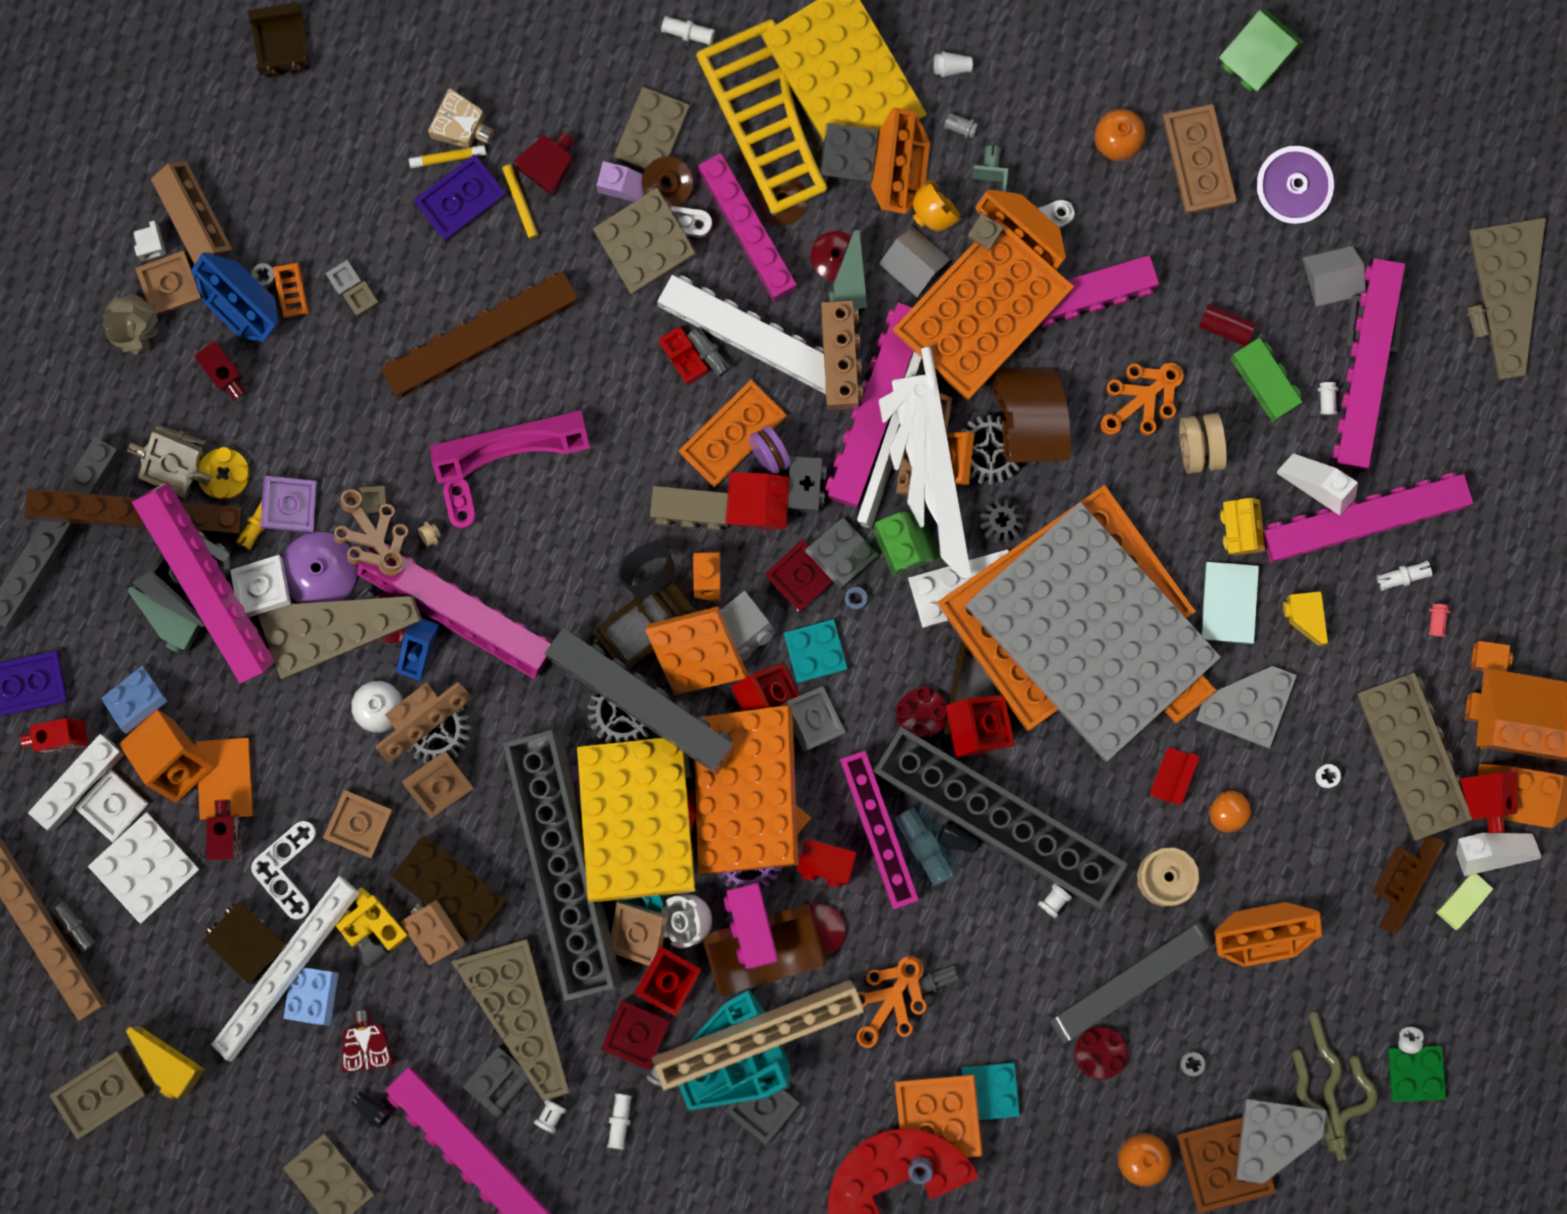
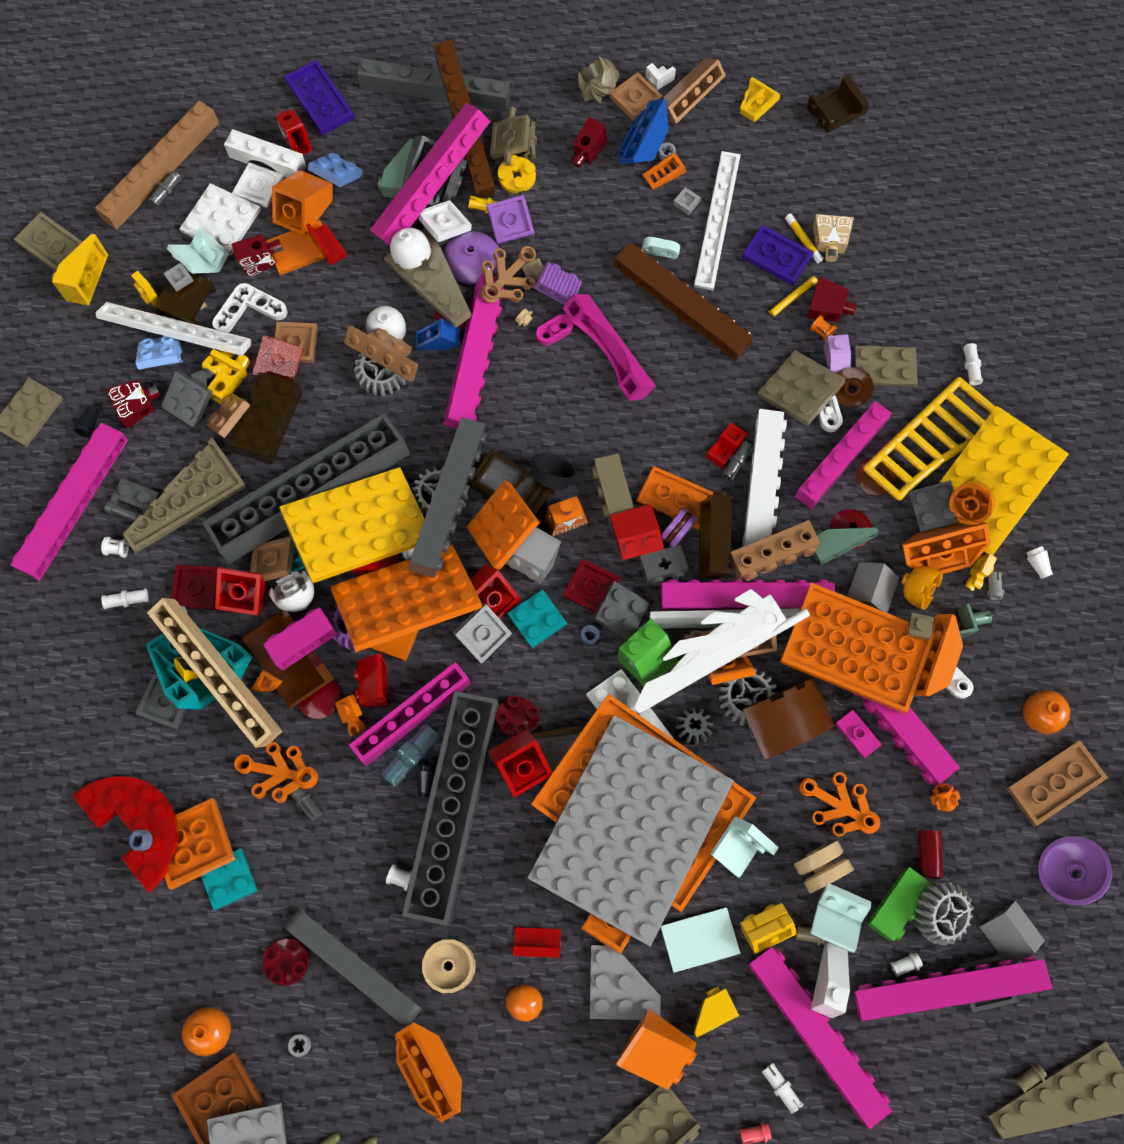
camera: 70 degrees right, 10 degrees down
(192, 906) = (202, 255): none -> light aqua bracket
(221, 988) = (144, 288): none -> yellow plate
(223, 940) = (178, 277): none -> light grey plate
(232, 134) = (758, 100): none -> yellow wing
(237, 742) = (326, 243): none -> red panel
(289, 641) = (409, 248): none -> white cylinder
(360, 299) = (676, 216): dark tan plate -> none
(378, 851) = (278, 358): none -> clear red plate
(382, 250) = (717, 221): none -> white tile
(389, 978) = (186, 398): none -> dark grey plate
(397, 334) = (661, 247): none -> light aqua beam
(403, 477) = (557, 283): none -> medium lavender brick
(437, 784) = (340, 382): medium nougat plate -> none
(578, 184) = (823, 328): none -> orange bush
(740, 1069) = (184, 670): none -> yellow slope
(780, 984) = (266, 682): none -> orange tile
(796, 414) = (715, 536): none -> dark brown door
(850, 898) = (350, 712): none -> orange plate
(866, 112) = (972, 502): none -> orange cylinder
(938, 134) = (982, 568): none -> yellow plate
(1072, 346) = (858, 734): none -> dark pink plate
(1149, 523) = (740, 845): none -> light aqua bracket
(1173, 284) = (945, 797): none -> orange gear
(1259, 448) = (839, 917): none -> light aqua bracket
(1264, 484) = (803, 933): none -> dark tan pin
(1287, 341) = (938, 910): none -> light grey gear
(1326, 689) = (657, 1051): none -> orange slope
(1332, 769) = (591, 1081): white bush -> none

